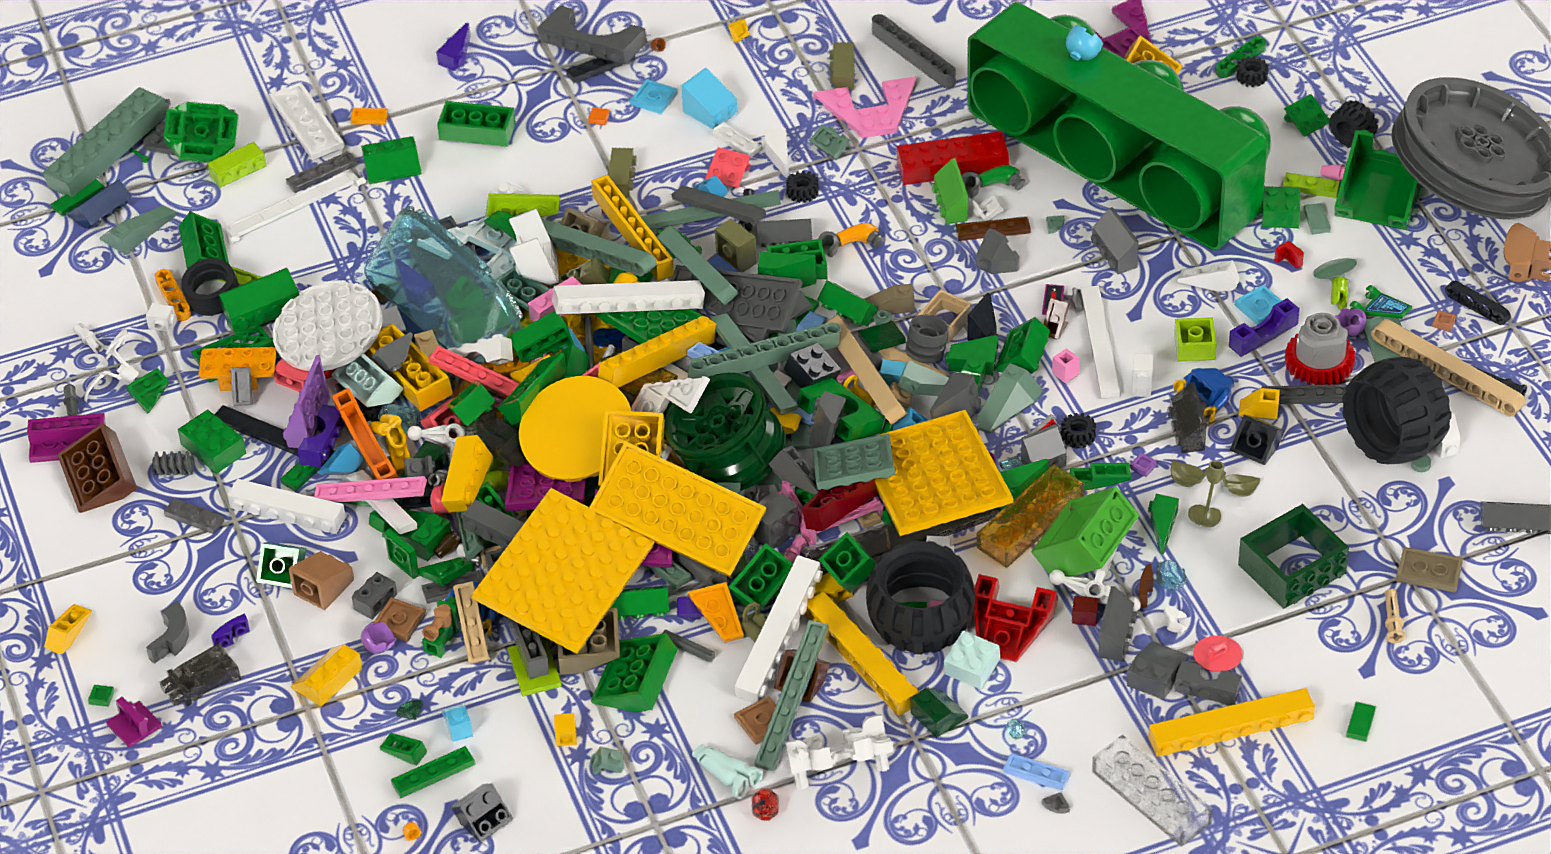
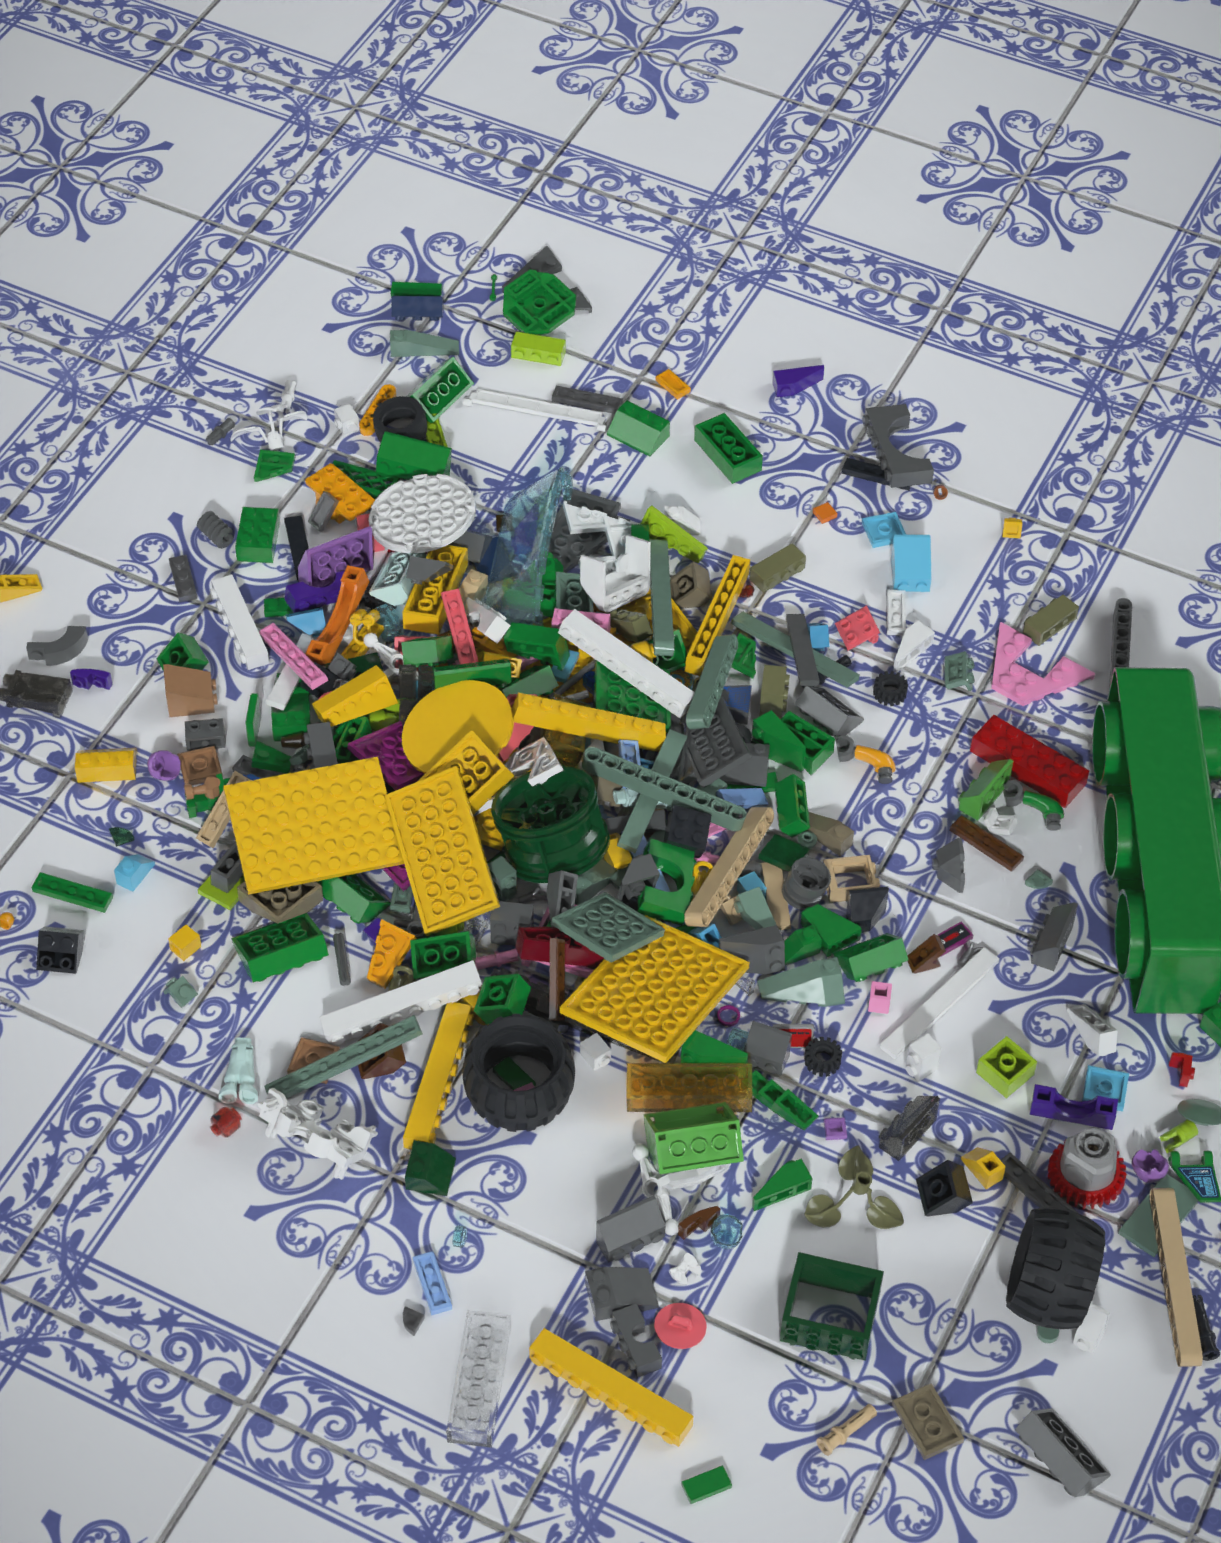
camera: 45 degrees right, 5 degrees up
(55, 434) = (181, 456): magenta slope -> none
(97, 469) = (168, 493): reddish brown slope -> none
(106, 142) = (474, 264): sand green brick -> none
(306, 121) = (625, 353): white plate -> none
(412, 756) = (81, 860): green slope -> none
(868, 518) = (557, 979): none -> reddish brown tile
(972, 660) = (499, 1155): light aqua brick -> none
(1010, 624) = (562, 1154): red wedge -> none
(1082, 44) = (1178, 746): medium azure cylinder -> none
(1084, 610) = (628, 1194): dark red panel -> none
(1211, 387) = (964, 1115): blue torso -> none

